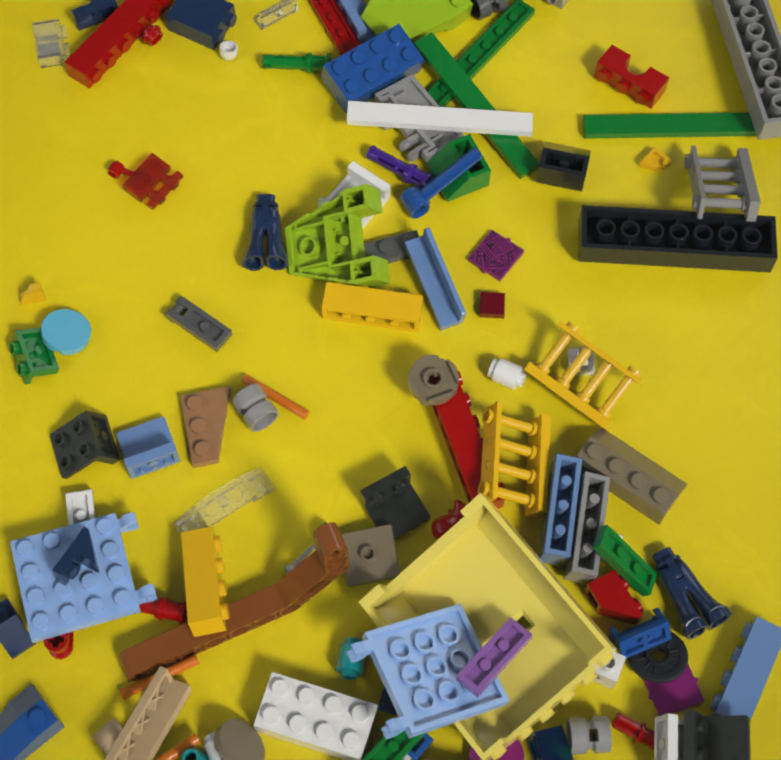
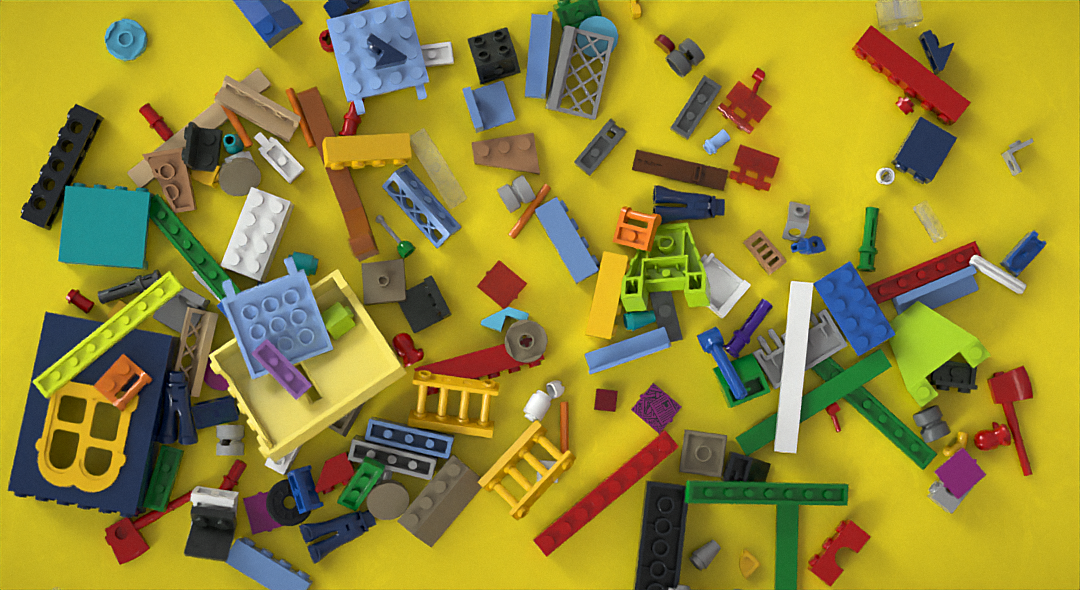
camera: 95 degrees right, 20 degrees up
(77, 262) = (665, 43): none -> dark red tile
(86, 392) = (538, 56): none -> medium blue panel
(93, 238) = (678, 60): none -> dark grey wheel
(104, 363) = (561, 72): none -> light grey fence
(152, 228) = (695, 107): none -> dark grey plate
(195, 209) = (716, 142): none -> light blue pin
(212, 699) = (279, 158): none -> white hinge
(214, 168) = (756, 162): none -> clear red plate
(223, 245) = (680, 170): none -> reddish brown piece
(267, 512) = (424, 203): none -> medium blue fence
(277, 124) = (797, 218): none -> light grey bracket
(301, 279) = (633, 235): none -> orange plate
(306, 116) = (805, 246): none -> blue piece
(309, 352) = (566, 240): none -> medium blue brick
(319, 144) = (770, 247): none -> medium nougat slope
(365, 423) = (501, 284): none -> clear red piece
(398, 275) = (638, 319): none -> teal cone
(407, 419) = (497, 320): none -> medium azure slope
(421, 599) = (338, 320): none -> lime brick
(485, 89) = (832, 410): none -> red hand
(489, 354) = (555, 389): none -> white hinge
(529, 346) = (564, 427): none -> orange bar
(541, 205) = (703, 453): none -> dark tan plate
(580, 135) = (766, 493): none -> green plate
(600, 297) = (605, 493): none -> red brick
(639, 532) = (388, 500): none -> dark tan tile
(652, 197) = (704, 555): none -> light grey cone

